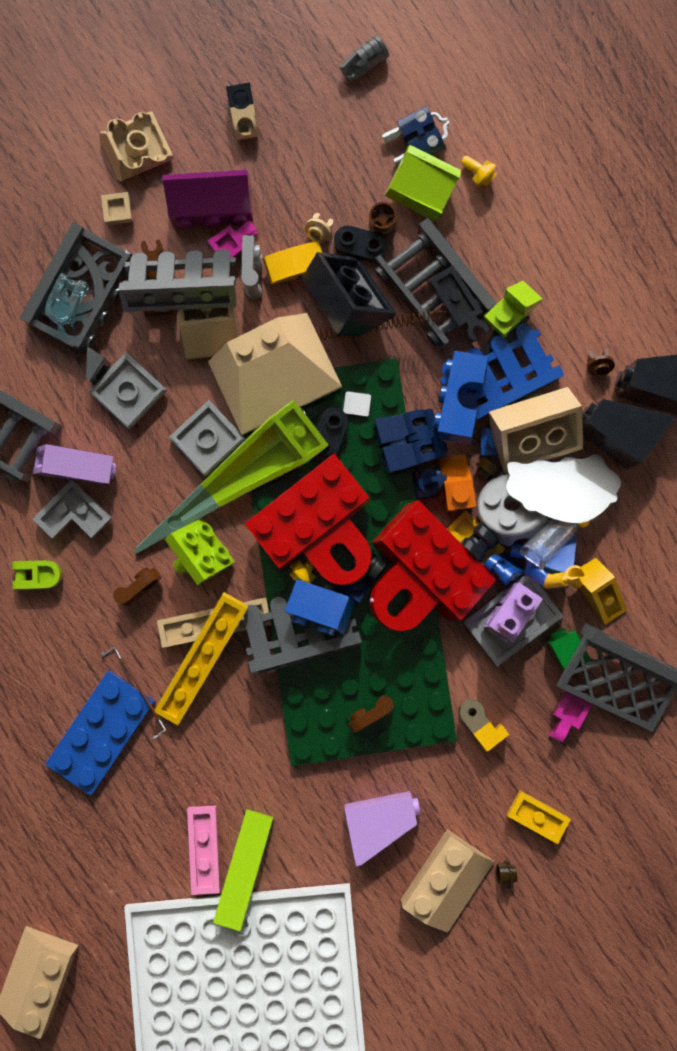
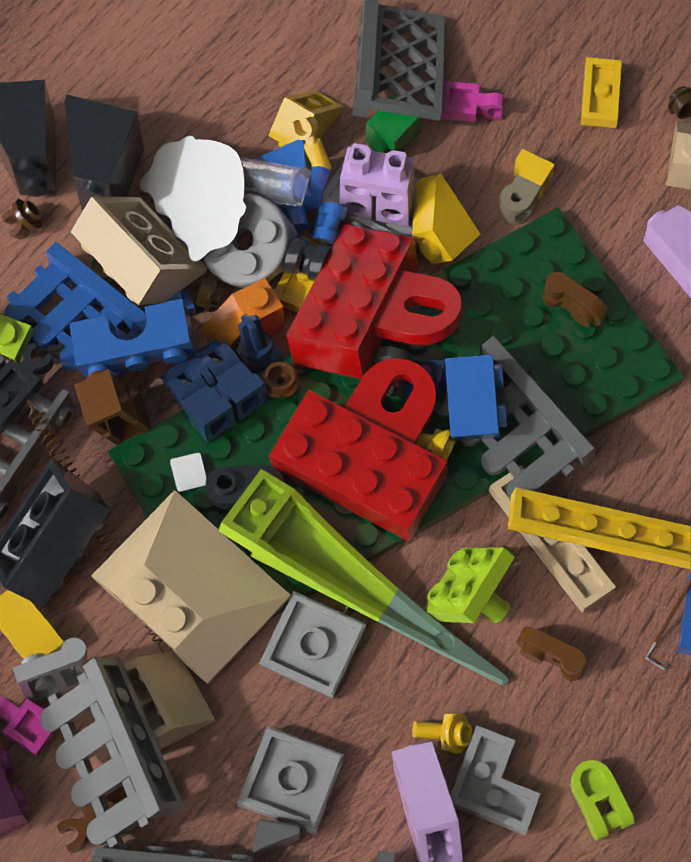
camera: 115 degrees left, 20 degrees down
(116, 503) = (453, 732): none -> yellow plate
(401, 482) = (283, 371): none -> reddish brown plate
(420, 367) = (112, 406): none -> reddish brown piece
(472, 648) = (440, 221): none -> yellow slope

